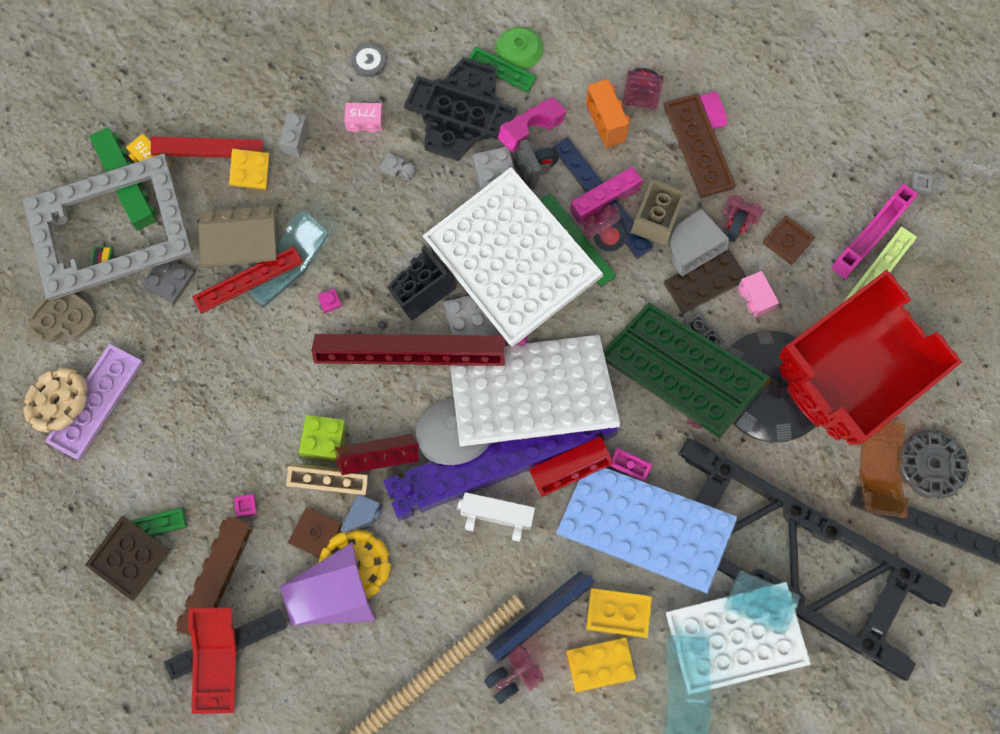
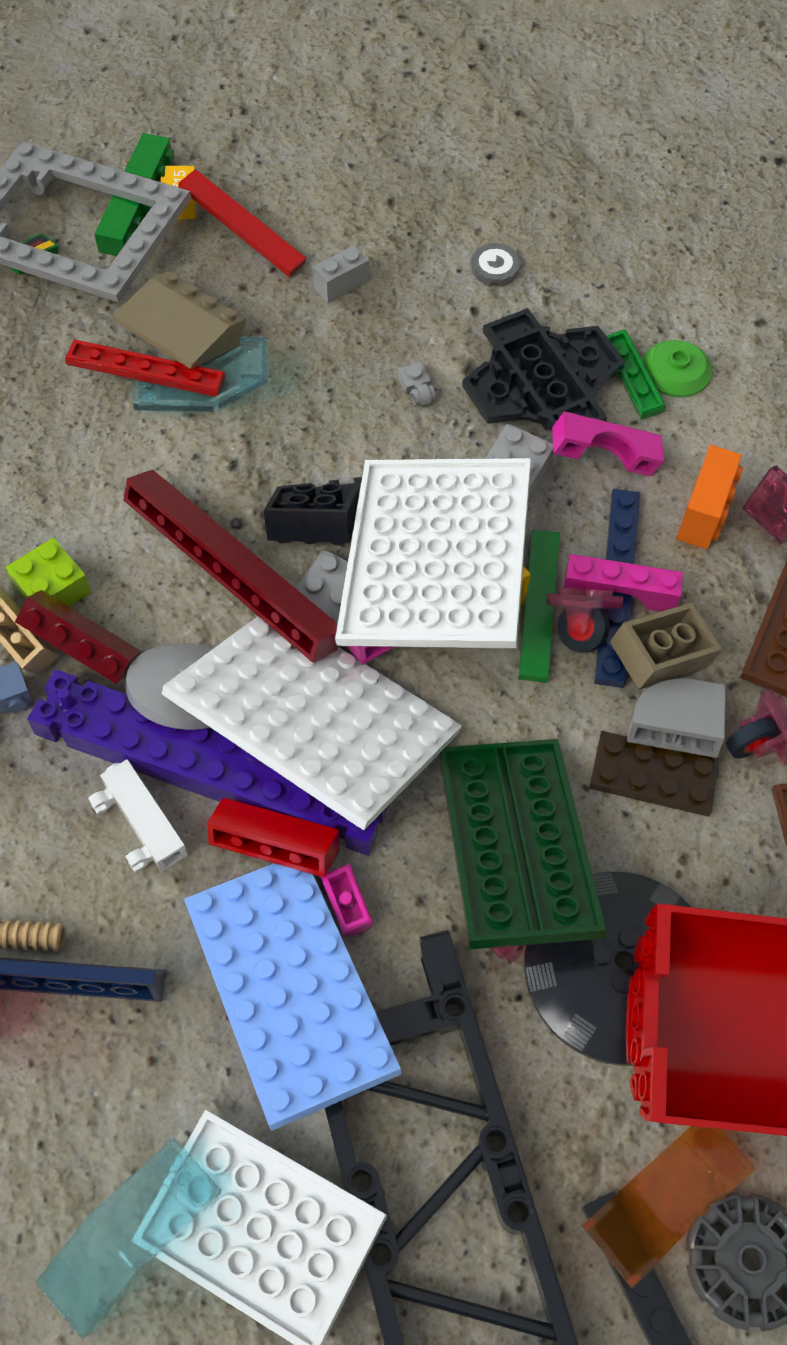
camera: 40 degrees right, 10 degrees down
(168, 280) = (76, 315): flat silver plate -> none
(249, 169) = (261, 272): yellow plate -> none
(329, 301) = (207, 455): dark pink plate -> none
(363, 117) = (431, 309): bright pink brick -> none
(534, 162) = (572, 485): dark grey plate -> none
(600, 665) = (73, 1102): yellow plate -> none
(618, 613) = (156, 1060): yellow plate -> none
(699, 325) = (594, 825): dark grey slope -> none
(758, 294) = (705, 840): bright pink brick -> none
(761, 602) = (321, 1206): clear light blue brick -> none

